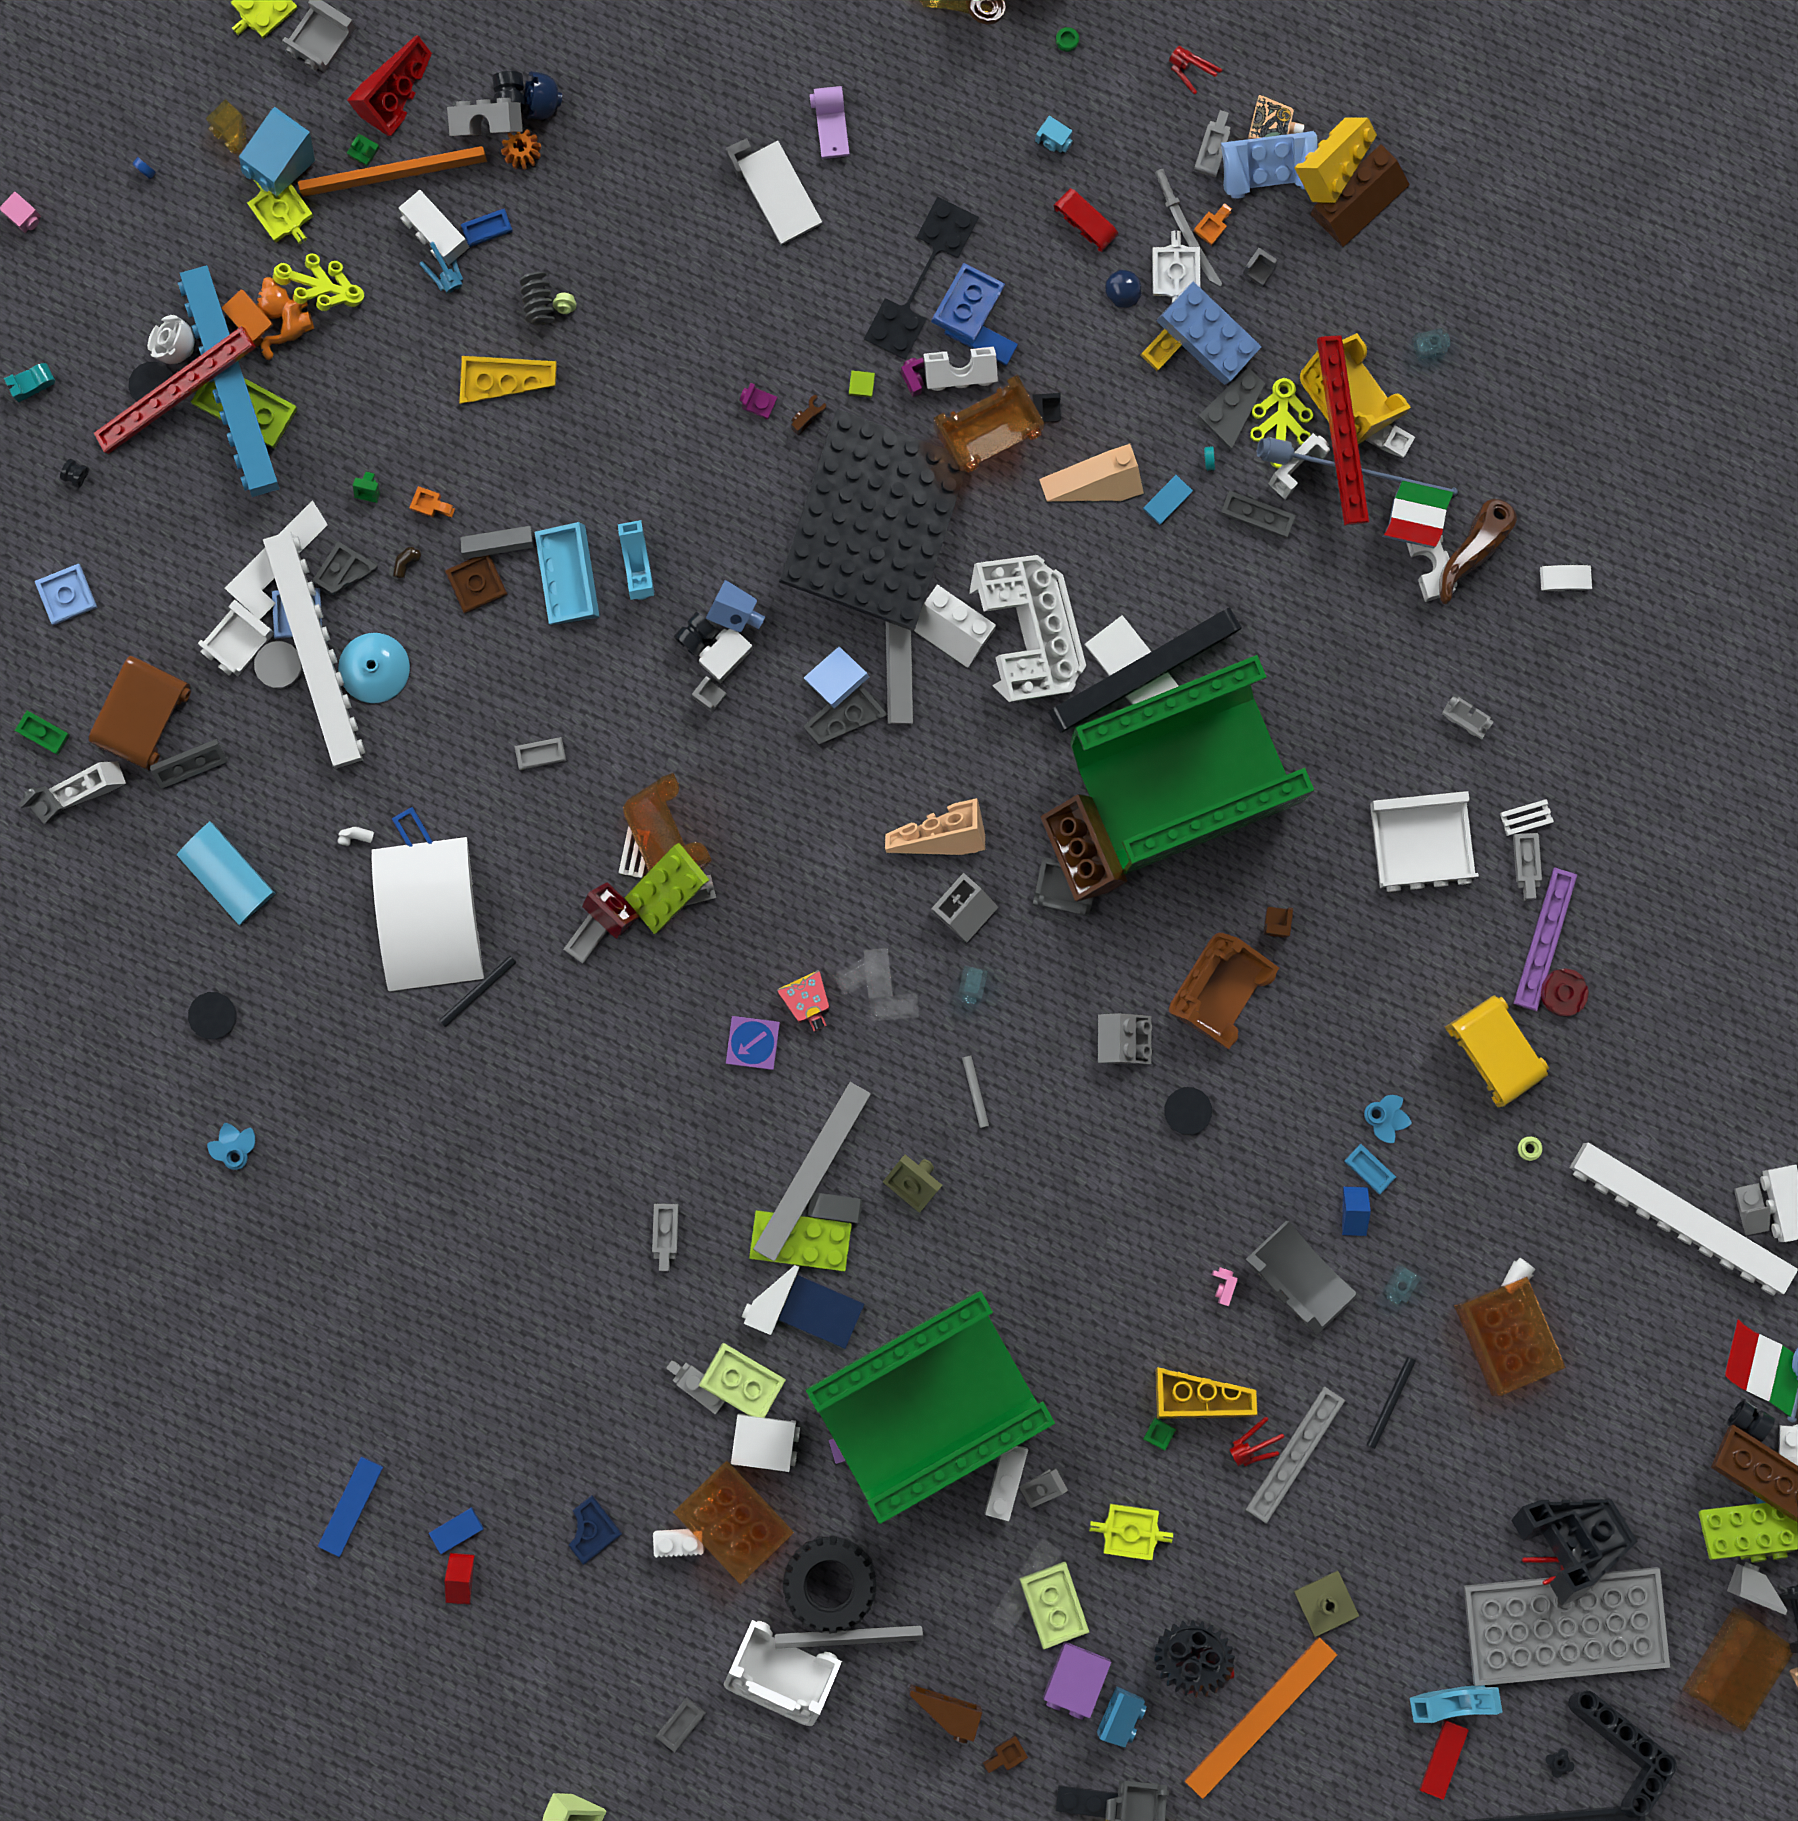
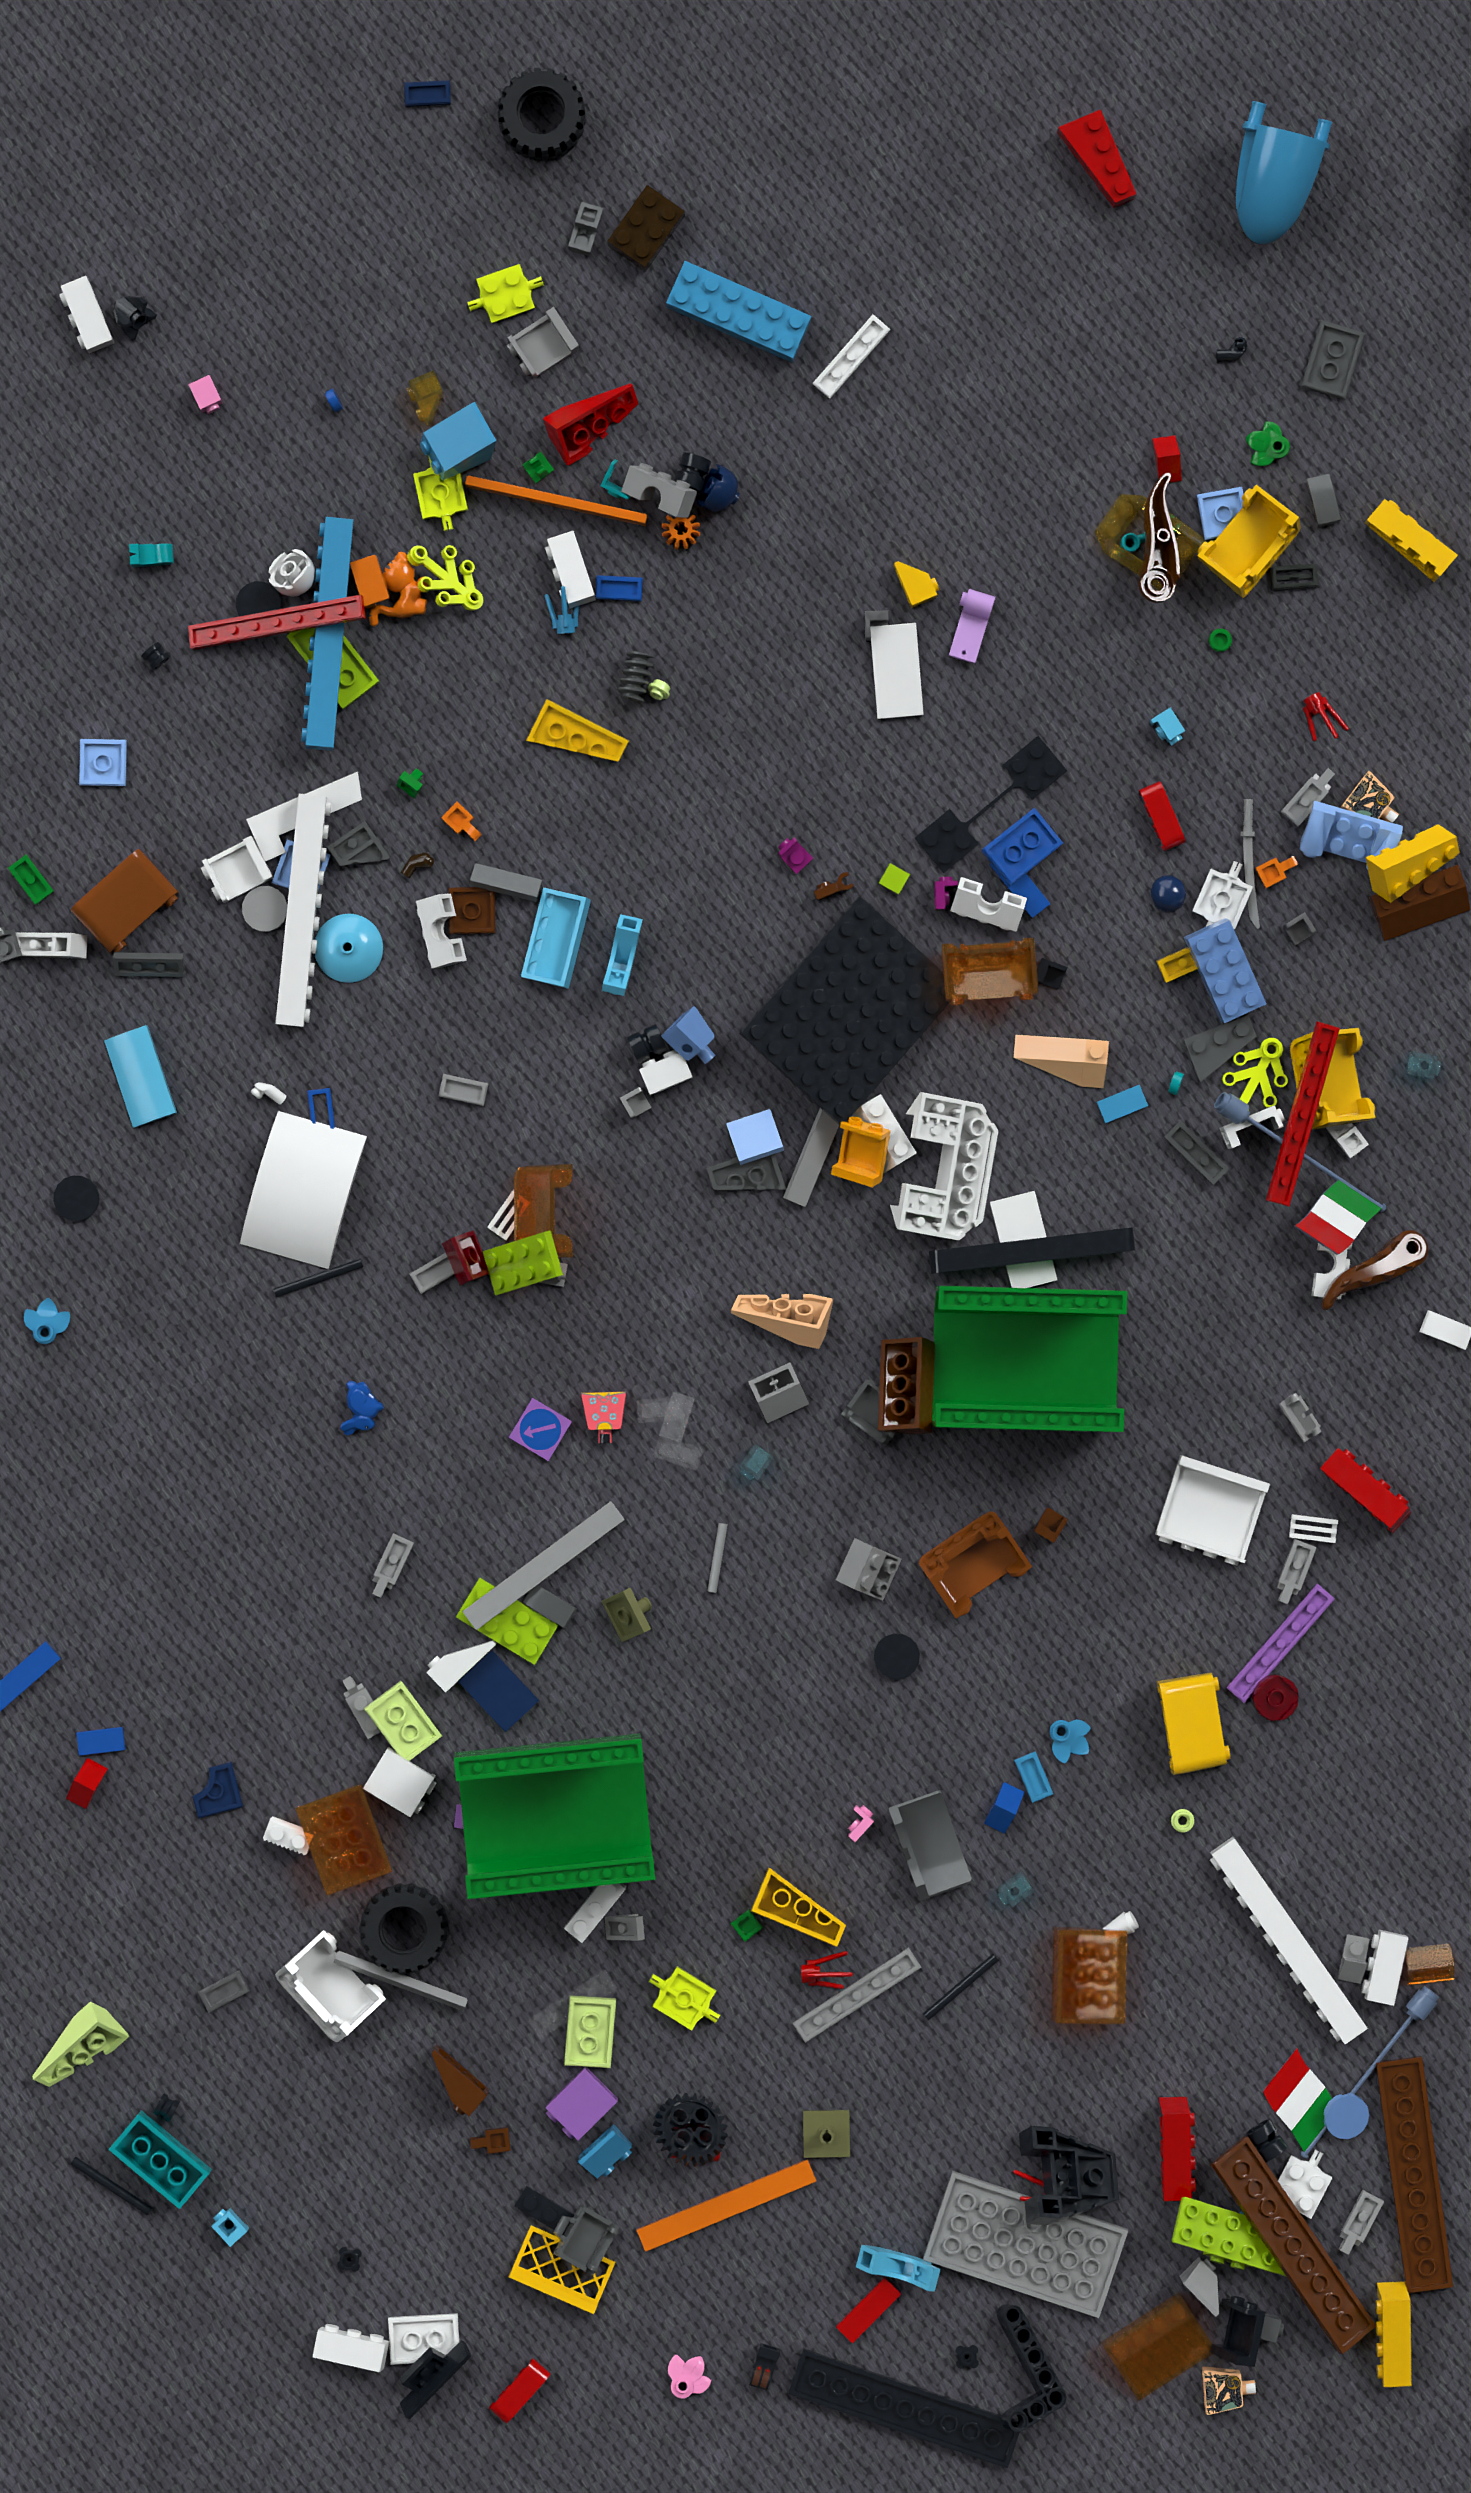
camera: 25 degrees right, 5 degrees up
(440, 599) = (433, 914): none -> white arch
(446, 140) = (613, 489): none -> teal bracket
(573, 1095) = (363, 1406): none -> blue animal
(762, 105) = (916, 584): none -> yellow slope
(944, 645) = (862, 1152): none -> light orange panel
(1561, 757) = (1366, 1489): none -> red wedge
(1669, 1467) = (1176, 2148): none -> red wedge

